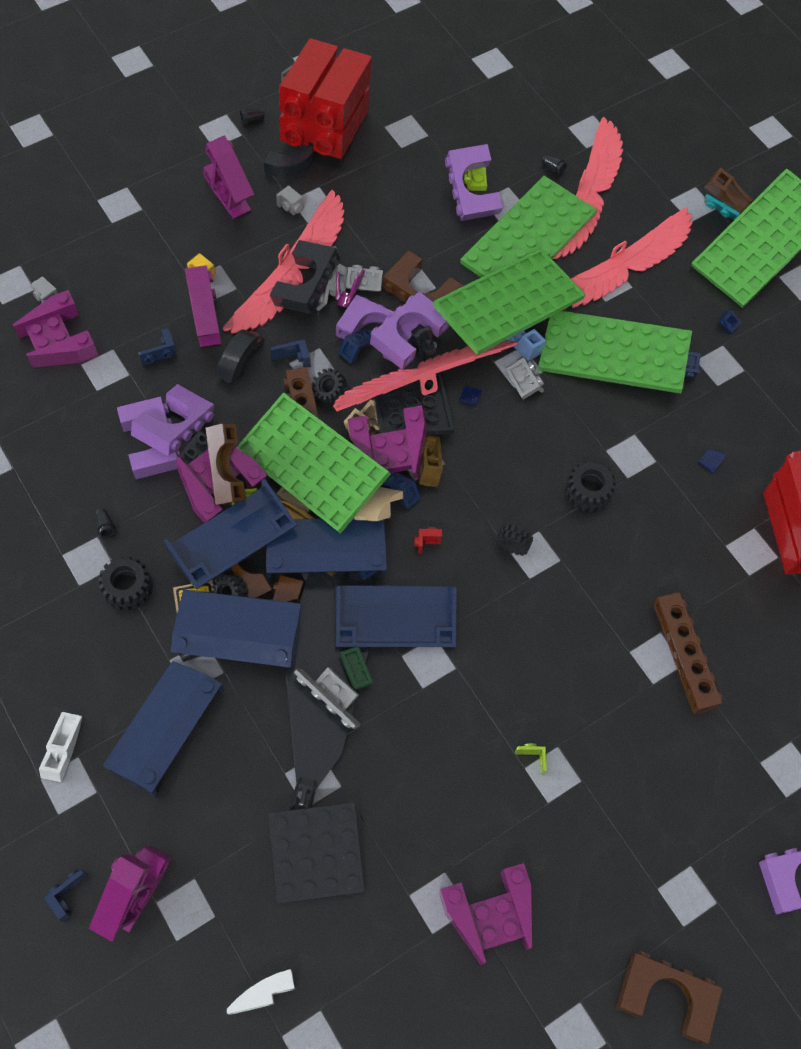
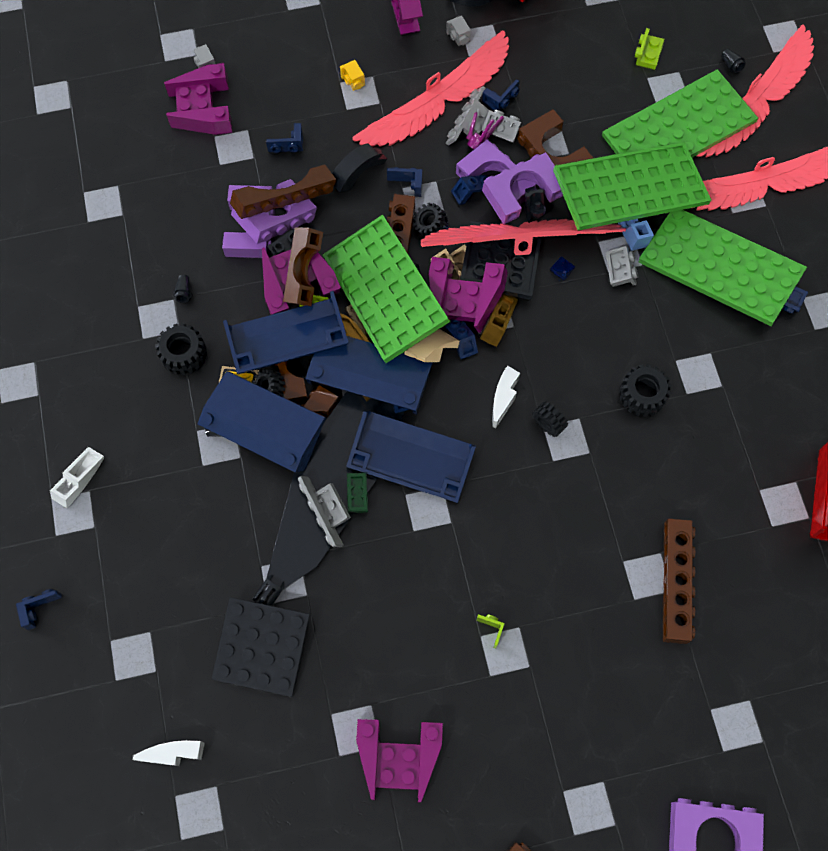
camera: 25 degrees right, 5 degrees up
(128, 890) = (86, 622): magenta wedge -> none
(152, 414) = (253, 201): none -> reddish brown arch
(162, 726) = (168, 488): dark blue slope -> none
(203, 305) = (338, 110): magenta wedge -> none
(306, 296) = (438, 127): black arch -> none
(350, 257) = (495, 102): none -> dark blue bracket
(427, 536) = (469, 390): red bracket -> none
(461, 530) = (504, 394): none -> white slope
(468, 204) = (632, 80): medium lavender arch -> none
(712, 459) = (779, 401): clear blue slope -> none

